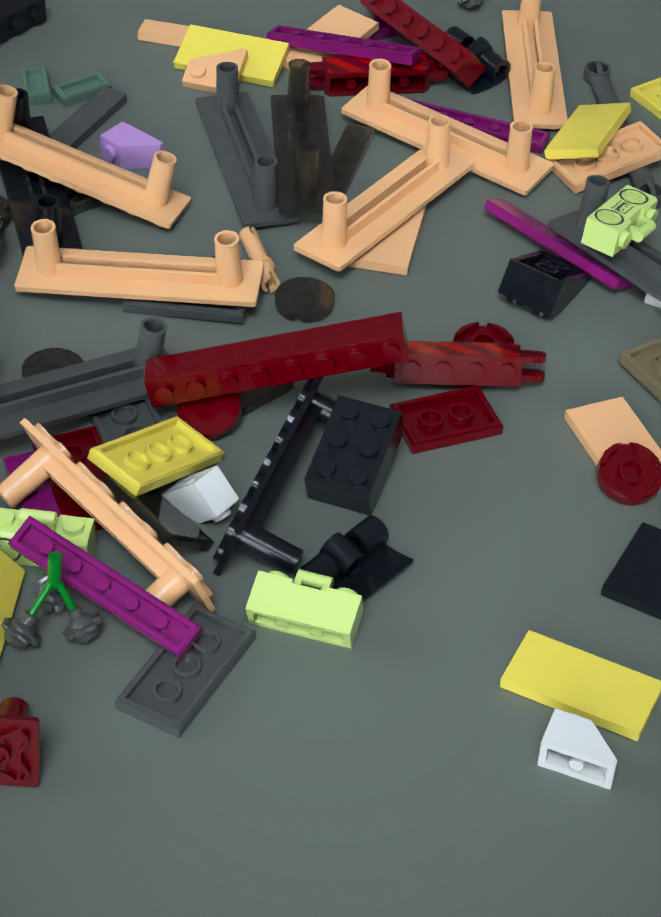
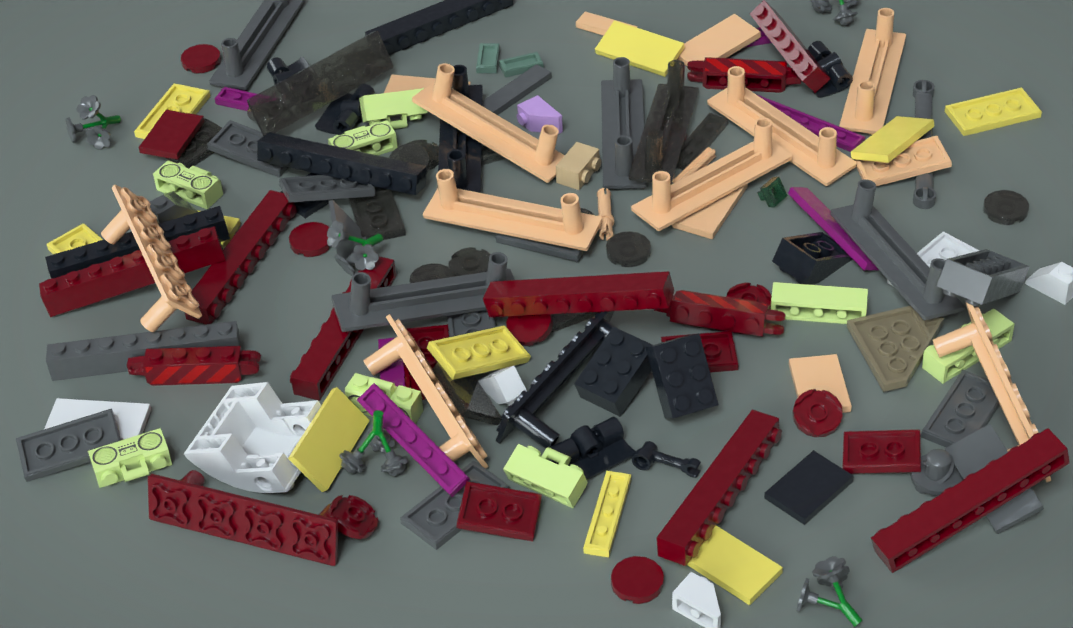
camera: 20 degrees right, 0 degrees up
(54, 707) = (354, 516): none -> dark red tile
(98, 340) = (469, 261): none -> clear smoke tile
(202, 71) = (635, 54): light nougat wing -> none
(203, 203) = (578, 166): none -> tan brick
(255, 668) = (499, 511): none -> dark red tile
(345, 45) = (726, 49): magenta tile -> none
(358, 182) = (697, 164): none -> light nougat axle
(403, 649) = (607, 514): none -> light yellow tile
(429, 560) = (648, 454): none -> black brick
(448, 448) = (682, 376): none -> black brick
(464, 209) = (772, 192): none -> clear green tile
(477, 732) = (637, 579): none -> dark red tile
(545, 592) = (718, 488): none -> dark red brick
(578, 334) = (819, 302): none -> yellowish green brick
(621, 219) = (881, 215): yellowish green piece -> none

